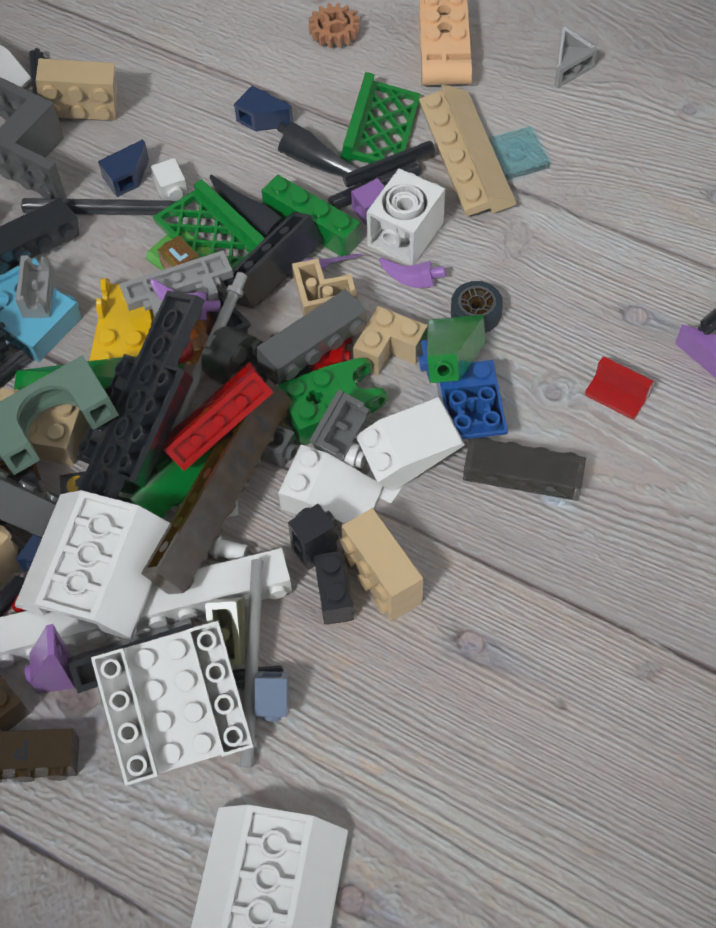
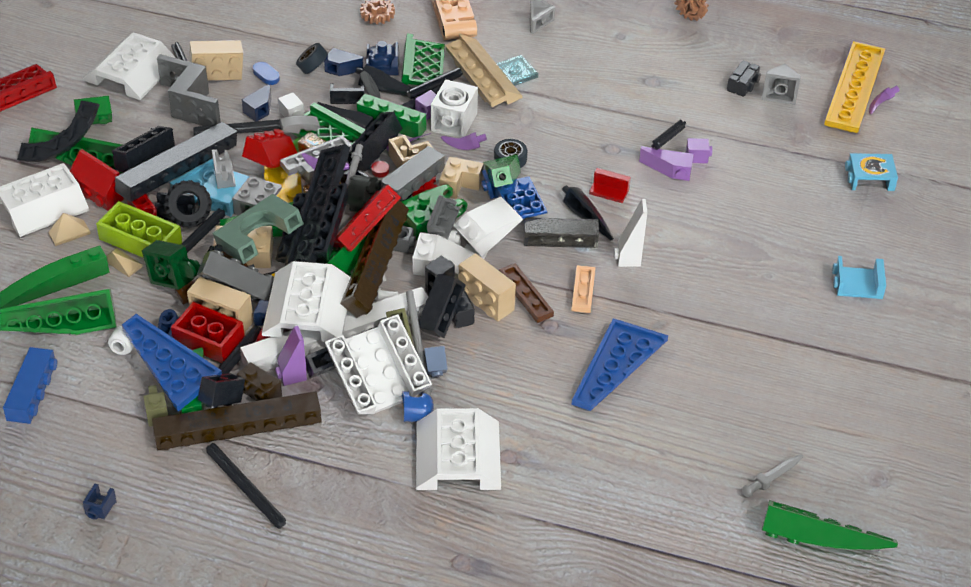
camera: 15 degrees left, 15 degrees down
(75, 334) = (252, 193): none -> light grey bracket
(114, 257) = (268, 148): none -> red slope
(151, 114) = (266, 73): none -> tile
(160, 215) = (295, 123): none -> light grey slope
(217, 99) = (311, 58): none -> black wheel
(223, 788) = (416, 407): none -> blue helmet
(256, 168) = (346, 95): none -> black hinge
(275, 307) = (380, 169): none -> tile
(293, 160) = (370, 85): none -> dark grey tile
(300, 595) = (441, 305): none -> black brick
(324, 111) = (384, 57): none -> dark blue brick
(445, 577) = (528, 294): none -> reddish brown plate
(537, 584) = (583, 289): none -> light nougat plate
(570, 727) = (617, 357): none -> blue wing
(572, 426) = (584, 208): none -> black piece
(632, 510) = (632, 239): none -> white wedge

